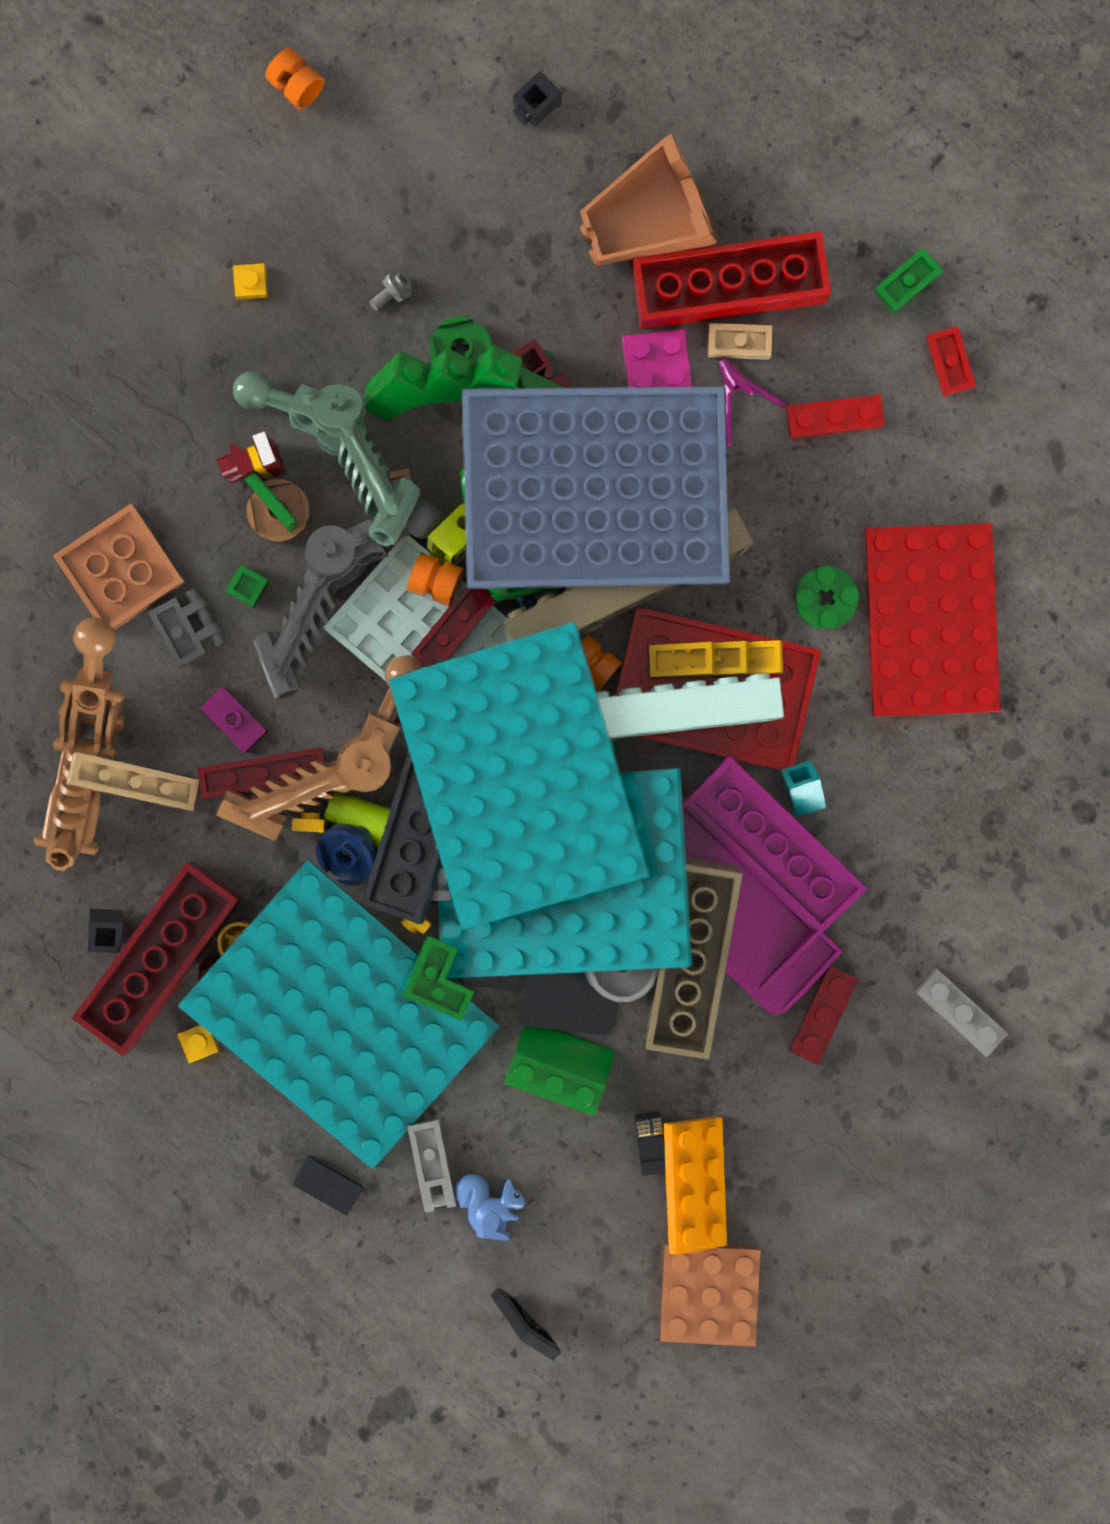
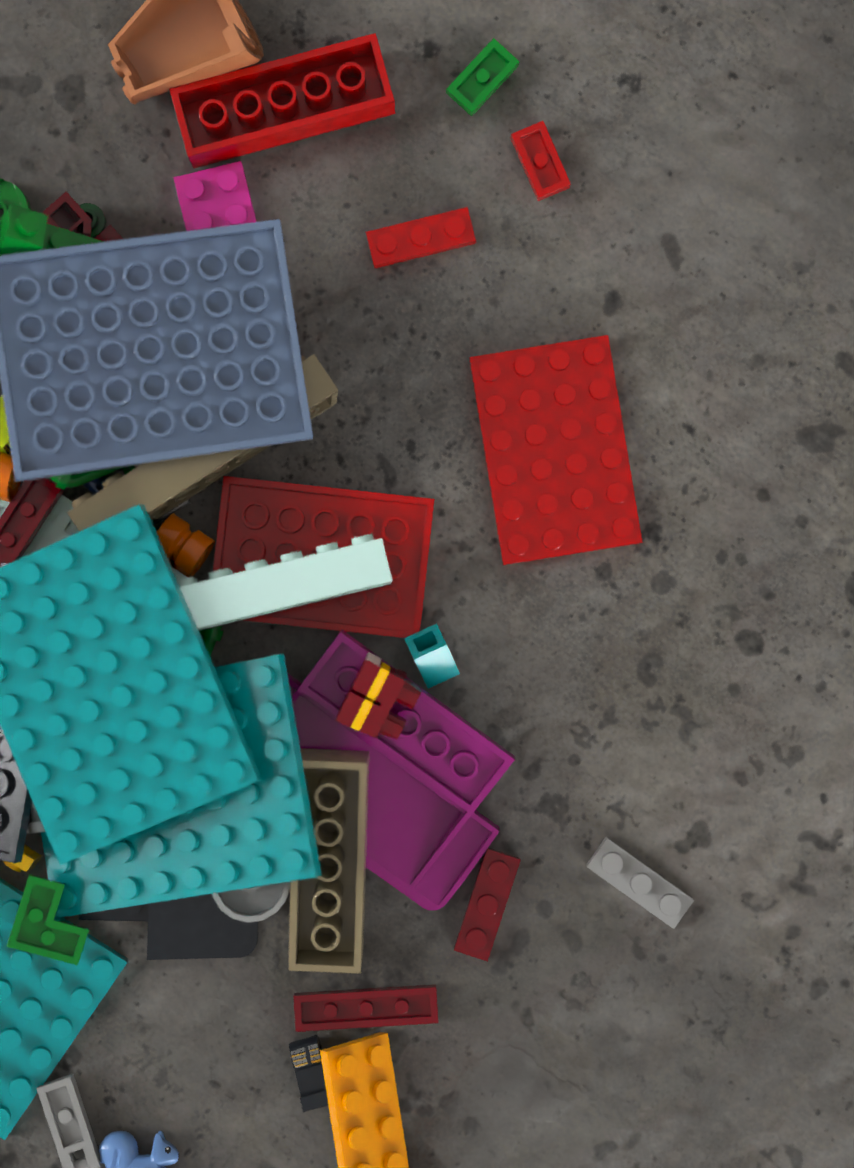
camera: 10 degrees left, 0 degrees up
(560, 1068) = (199, 1002): green slope -> none
(706, 1092) = (365, 1008): none -> dark red plate
(716, 659) = (317, 523): yellow slope -> none
(735, 381) = (307, 212): magenta plant -> none
(739, 341) = (304, 167): tan plate -> none
(766, 810) = (372, 697): none -> dark red hips
(844, 597) = (430, 420): green plate -> none

